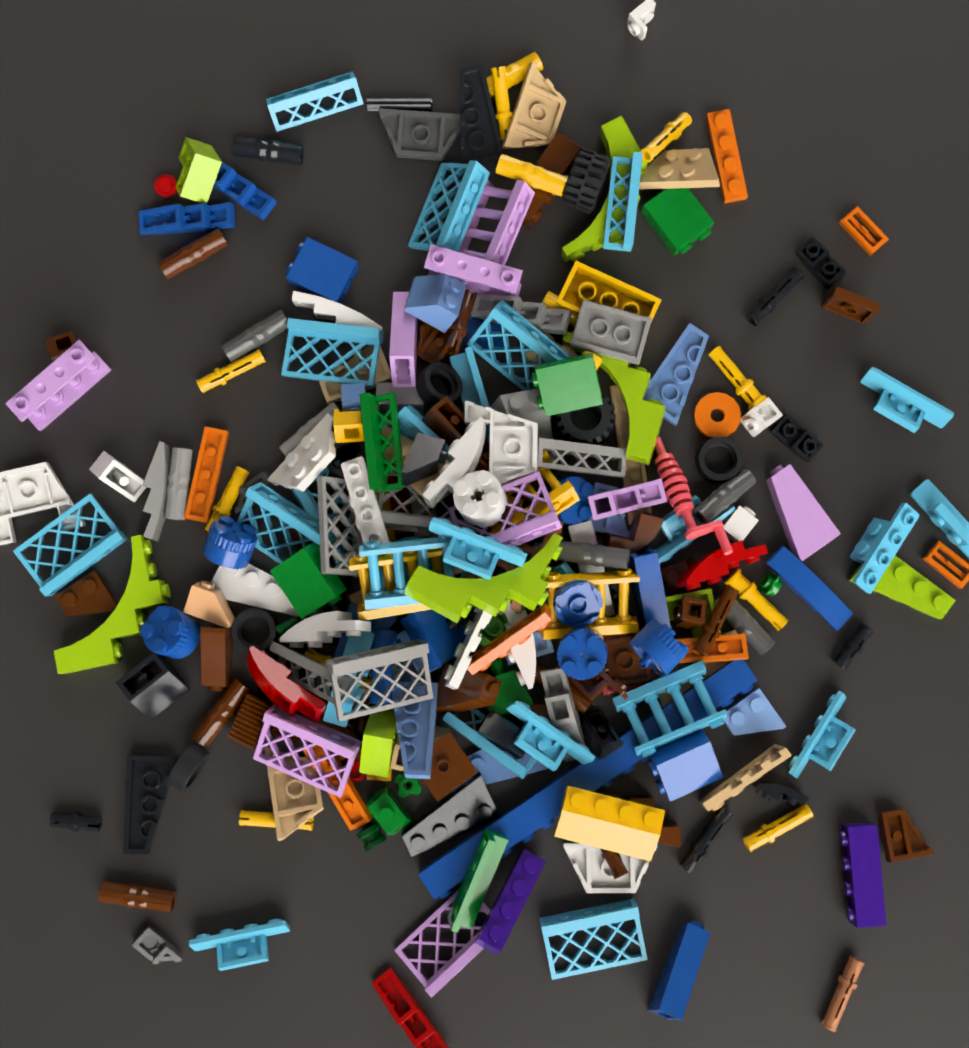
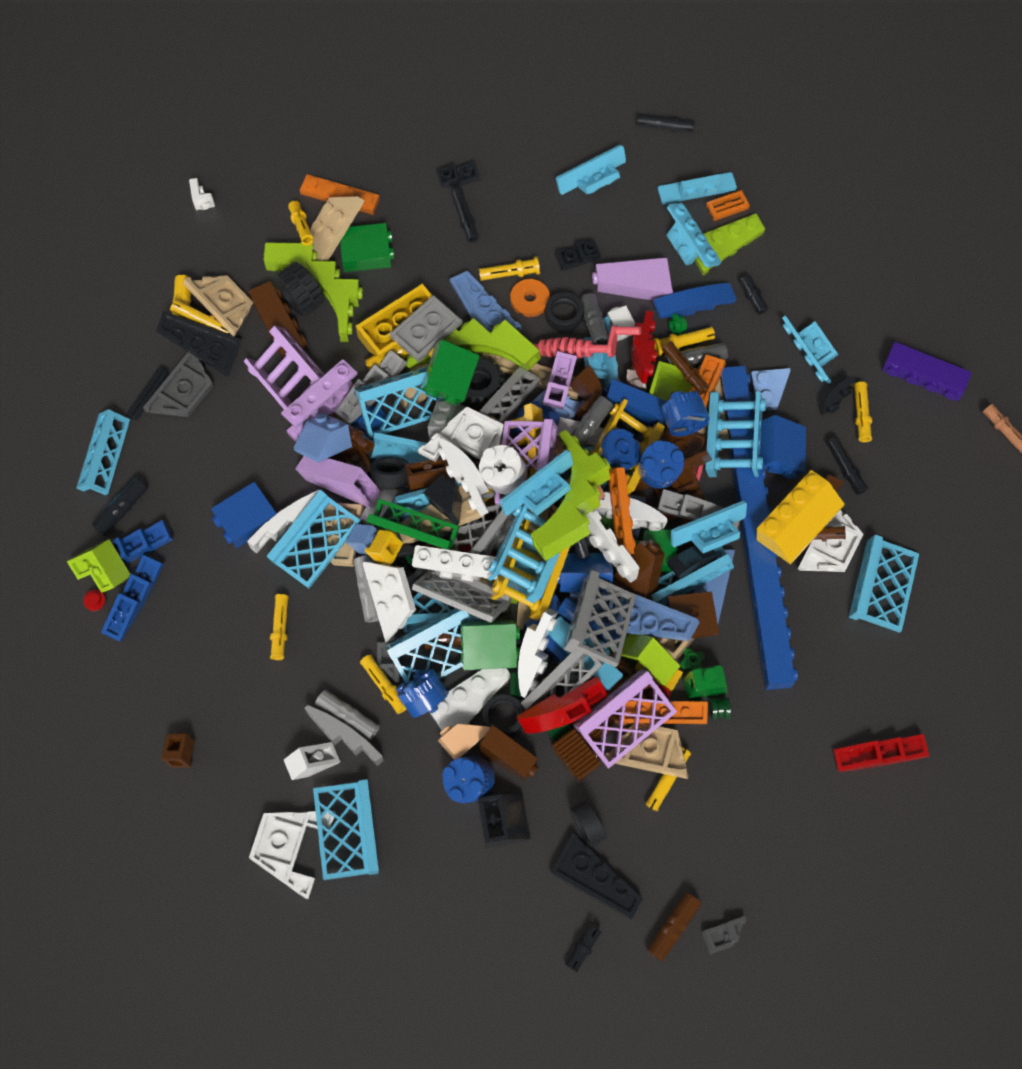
camera: 65 degrees left, 15 degrees down
(58, 386) = (208, 764): lavender fence -> none
(87, 597) = (397, 841): reddish brown wing -> none
(141, 592) = (421, 791): lime arch -> none
(193, 253) = (164, 607): reddish brown axle -> none
(206, 475) = (353, 689): orange plate -> none
(220, 713) = (556, 777): reddish brown axle -> none
(240, 946) = (758, 859): medium azure bracket -> none
(255, 336) = (263, 592): dark grey axle -> none
(451, 967) = (851, 684): lavender fence -> none
(459, 212) = (262, 382): medium azure fence -> none
(460, 813) = (736, 632): wing -> none
(477, 880) = (796, 640): fence -> none
(509, 902) = (825, 623): dark purple brick -> none
(533, 175) = (276, 317): yellow axle -> none
(599, 734) = (729, 494): black slope -> none
(631, 204) = (337, 266): medium azure fence -> none
(680, 972) = (941, 533): blue slope -> none
(685, 612) = (665, 387): reddish brown brick -> none
(750, 773) = (812, 410): tan wing -> none
(760, 417) = (549, 269): white bracket -> none
(851, 305) = (503, 168): reddish brown plate -> none
(861, 238) = (453, 139): orange tile -> none
(901, 837) = (910, 333): reddish brown wing -> none

